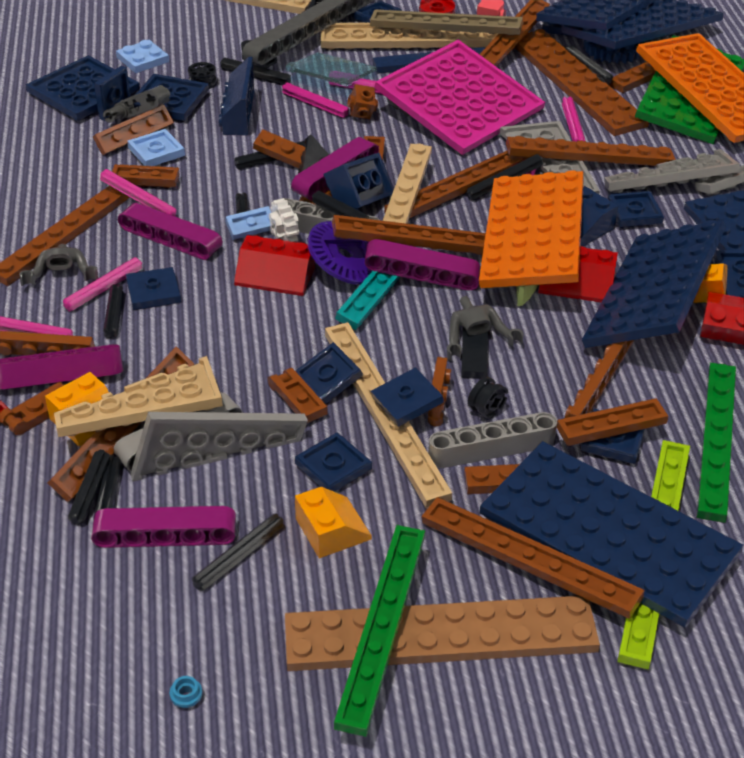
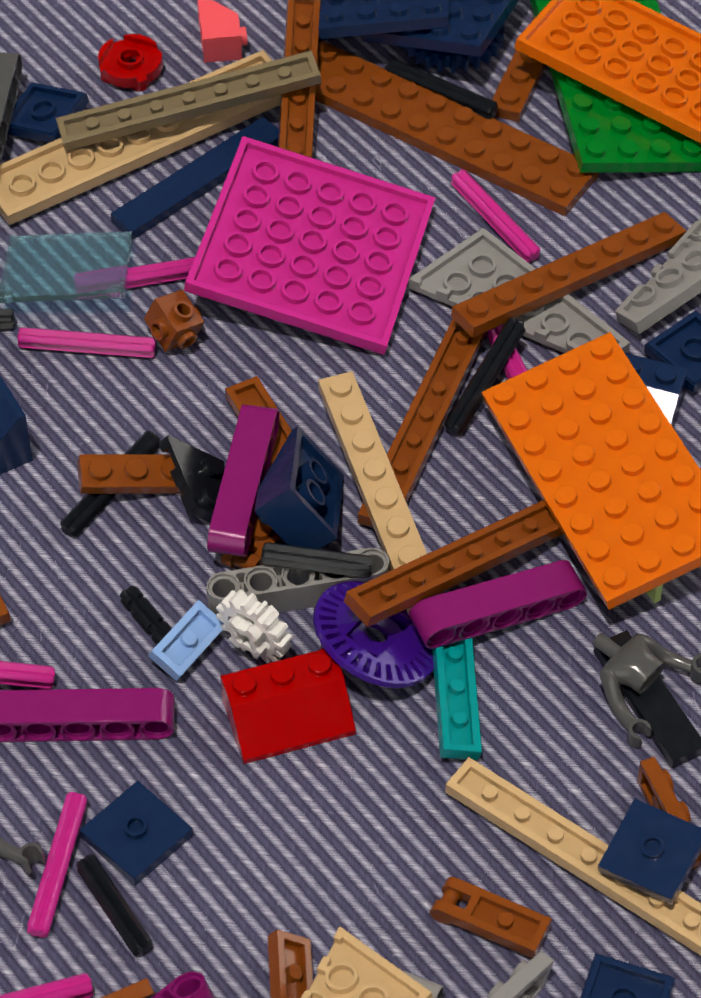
camera: 30 degrees left, 10 degrees up
(329, 372) = (509, 858): dark blue plate -> none

